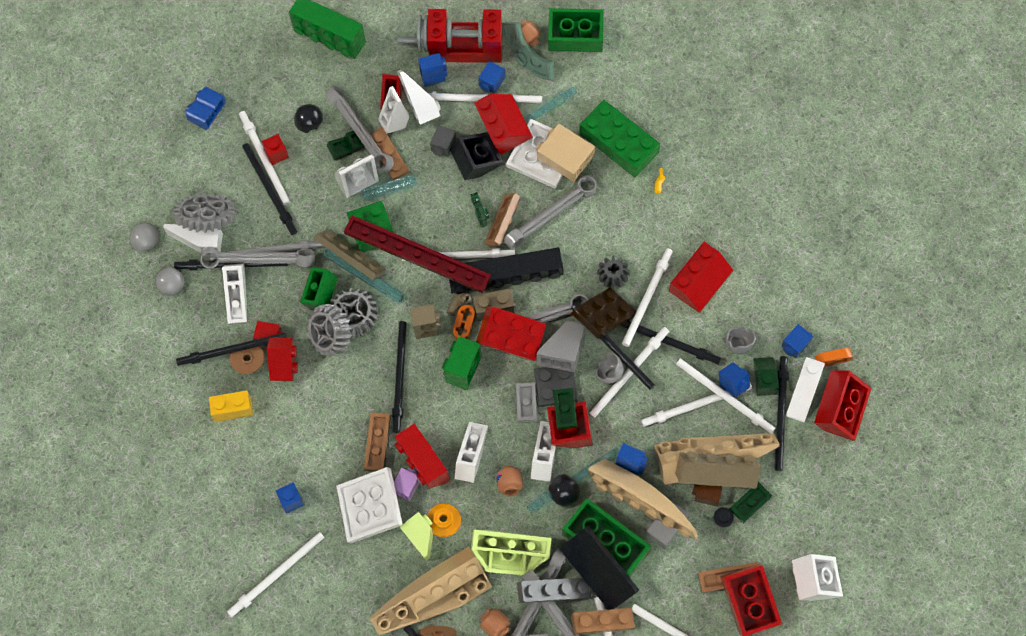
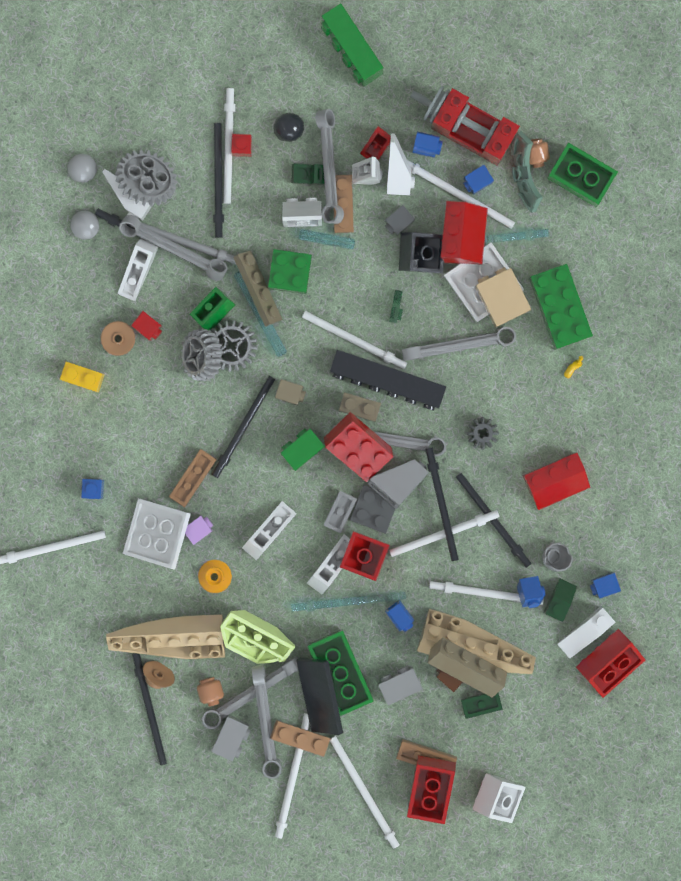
camera: 25 degrees right, 20 degrees up
(196, 357) = (74, 313): black bar -> none
(205, 107) = (198, 65): blue brick -> none
(281, 359) = (147, 360): red brick -> none
(417, 254) = (314, 327): dark red plate -> none
(420, 533) = (187, 579): yellowish green slope -> none
(421, 457) = (221, 518): red slope -> none
(458, 301) = (330, 384): dark tan arm -> none
(468, 324) = (329, 410): orange beam -> none
(502, 220) = (411, 328): medium nougat plate -> none
(509, 481) = (287, 575): nougat head -> none
(552, 590) = (270, 694): plate -> none
(564, 490) = (329, 609): black hair -> none
(565, 408) = (367, 544): dark green plate -> none
(603, 313) = (451, 470): dark brown plate -> none
(610, 369) = (428, 523): light grey hair -> none
(639, 495) = (390, 652): tan wedge -> none
(661, 267) = (528, 450): white bar -> none
(723, 517) = (451, 704): black plate -> none
(757, 419) = (530, 633): white bar -> none
(783, 377) = (575, 608): black bar -> none
(835, 356) = (628, 617): orange beam -> none

